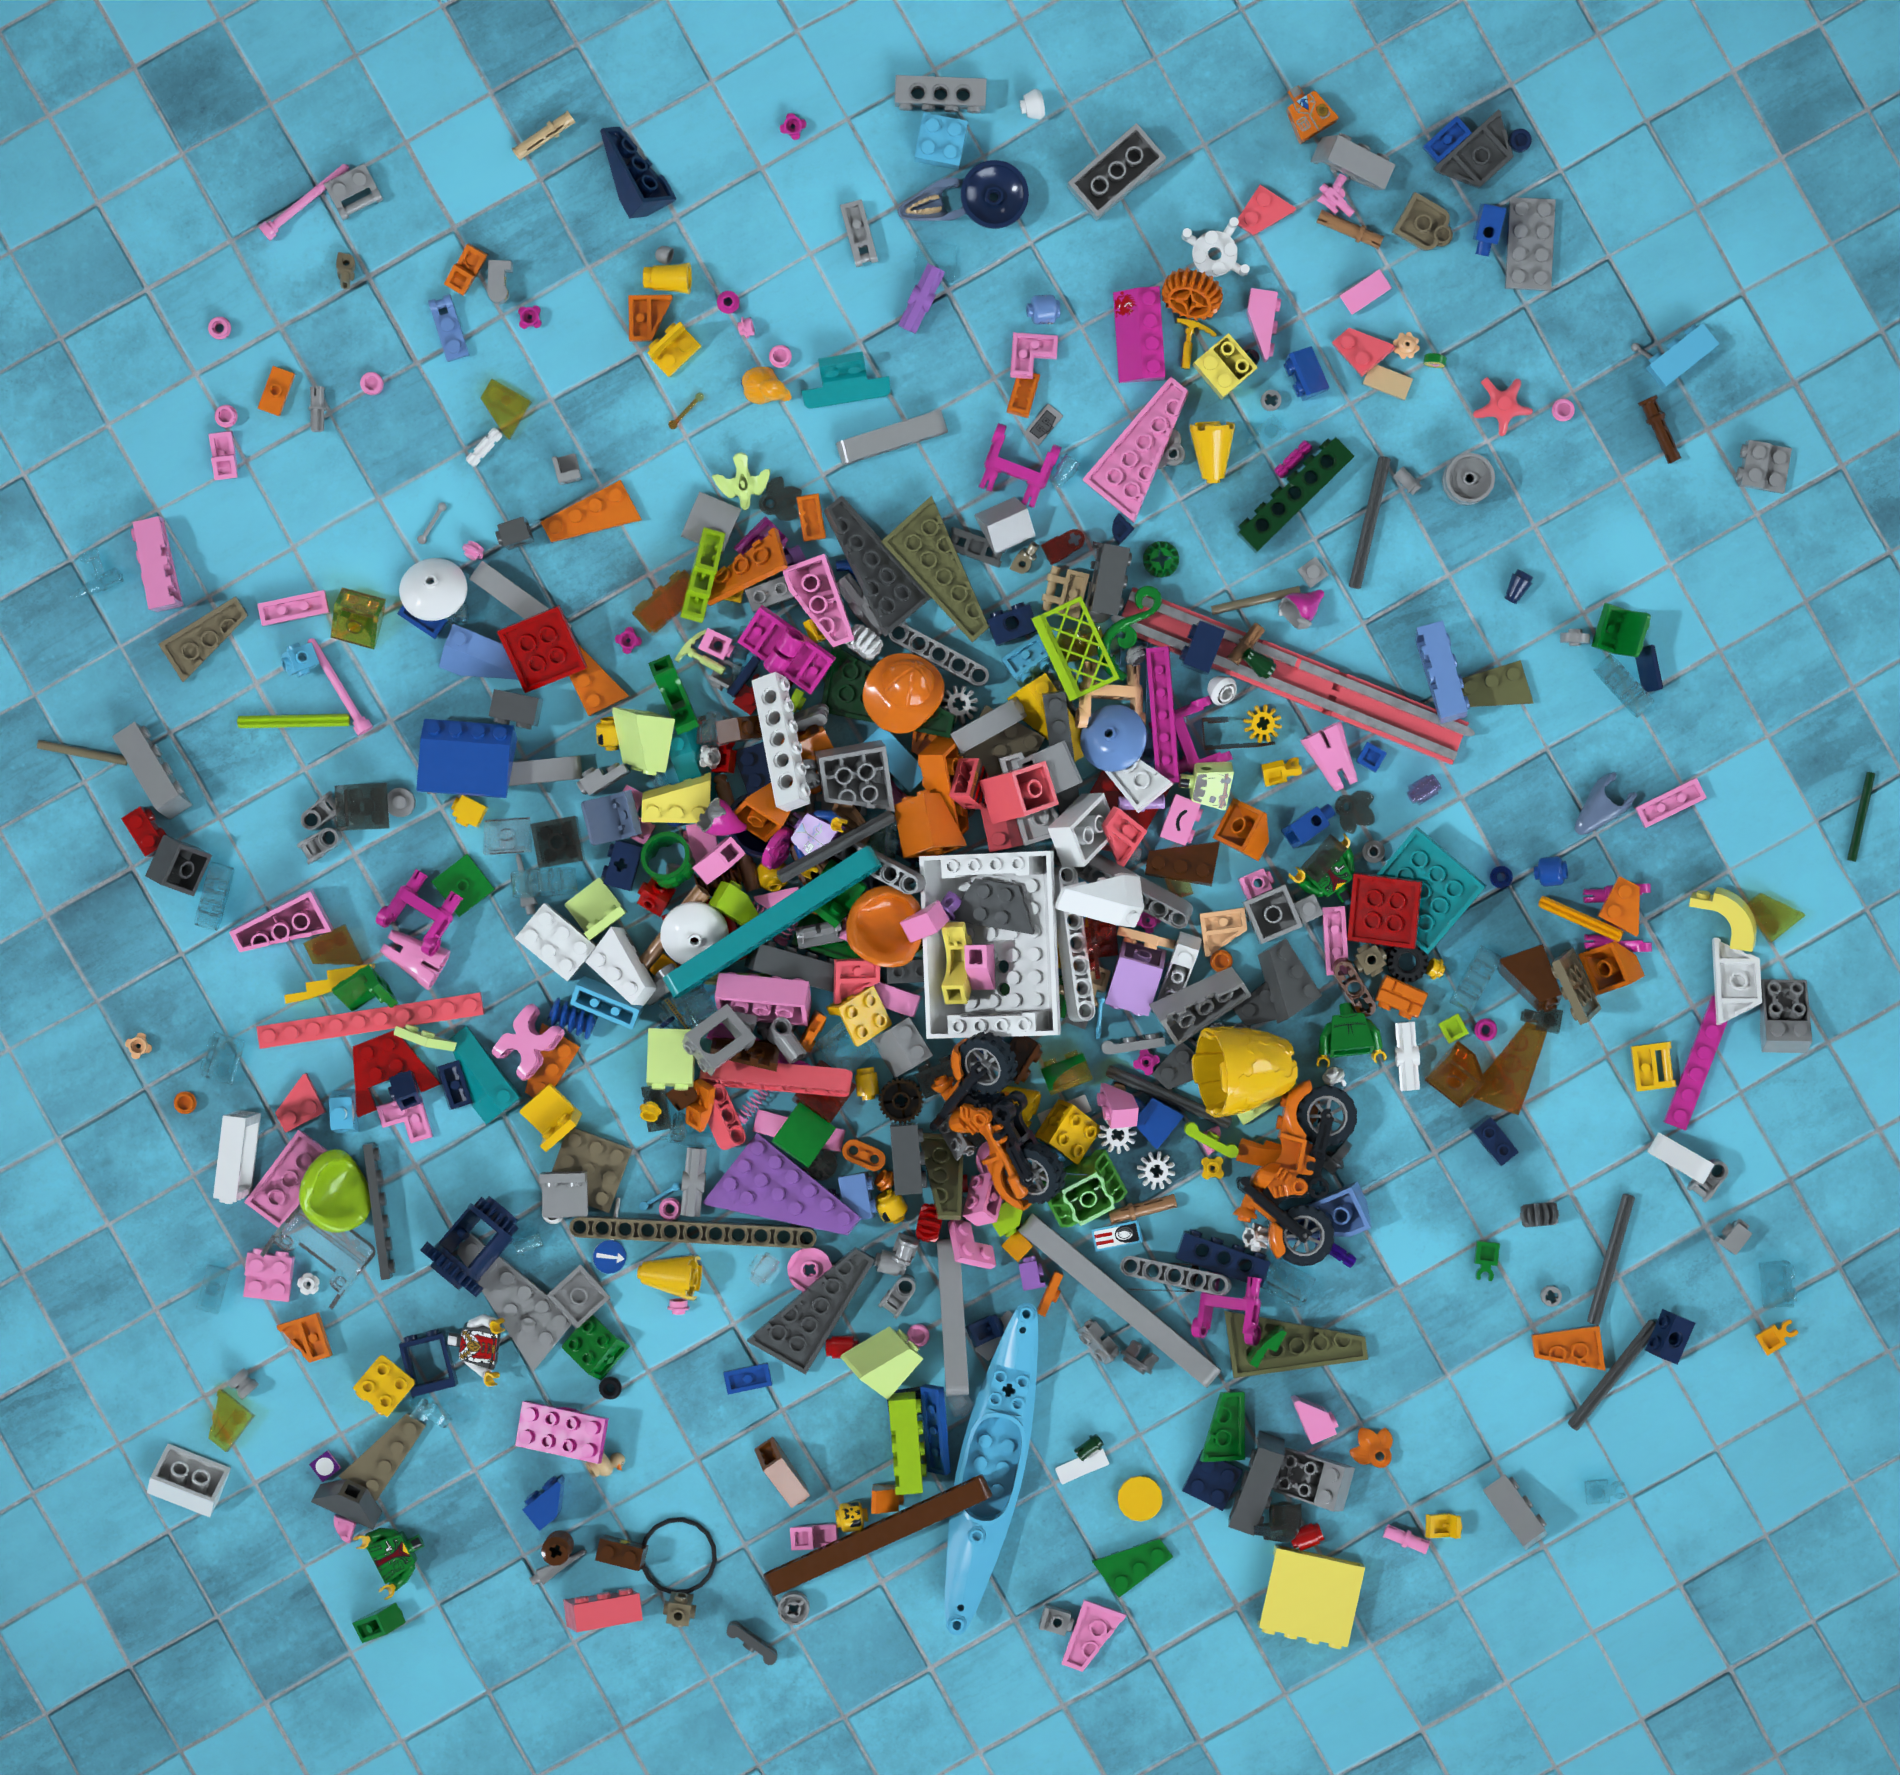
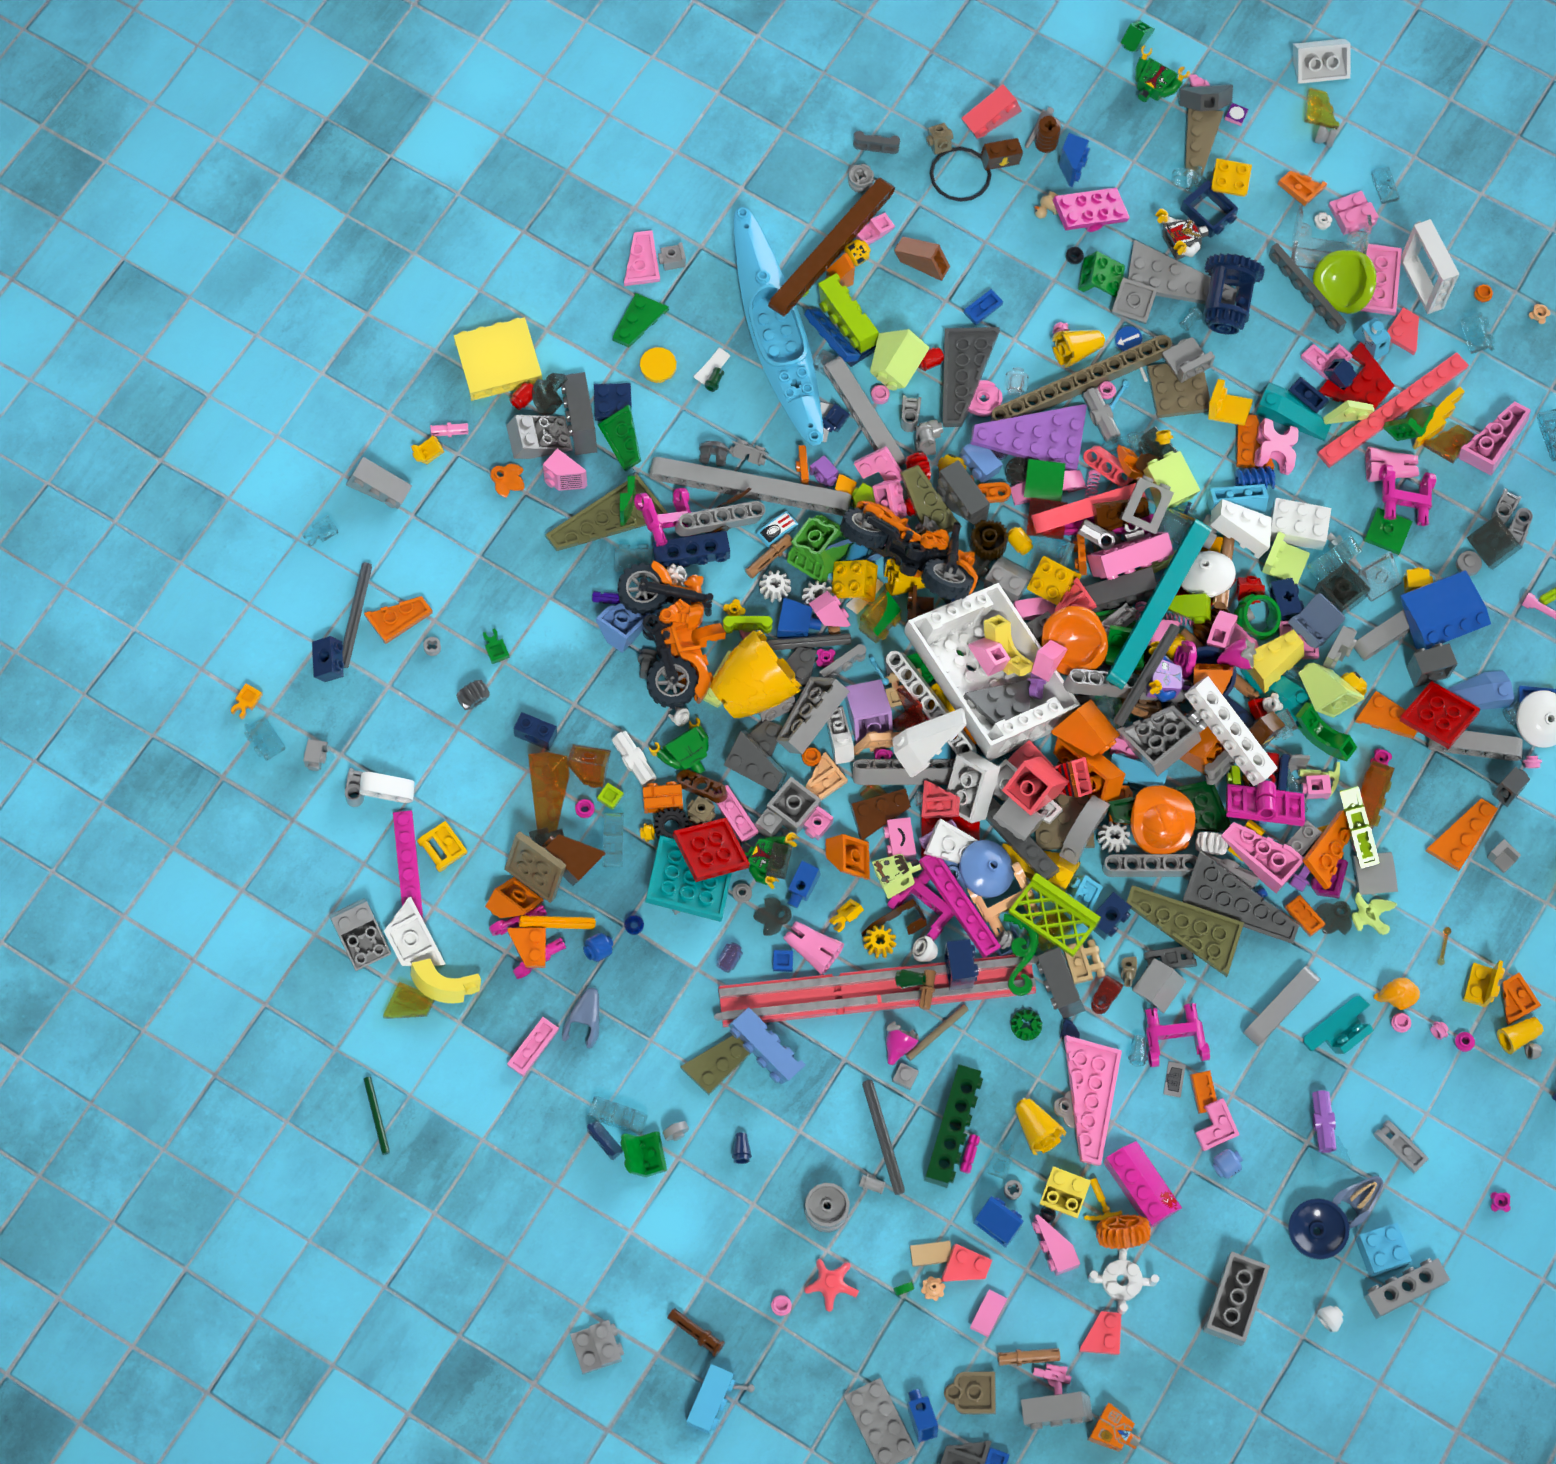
camera: 150 degrees right, 20 degrees down
(1611, 1259) = (400, 694): dark grey axle -> none

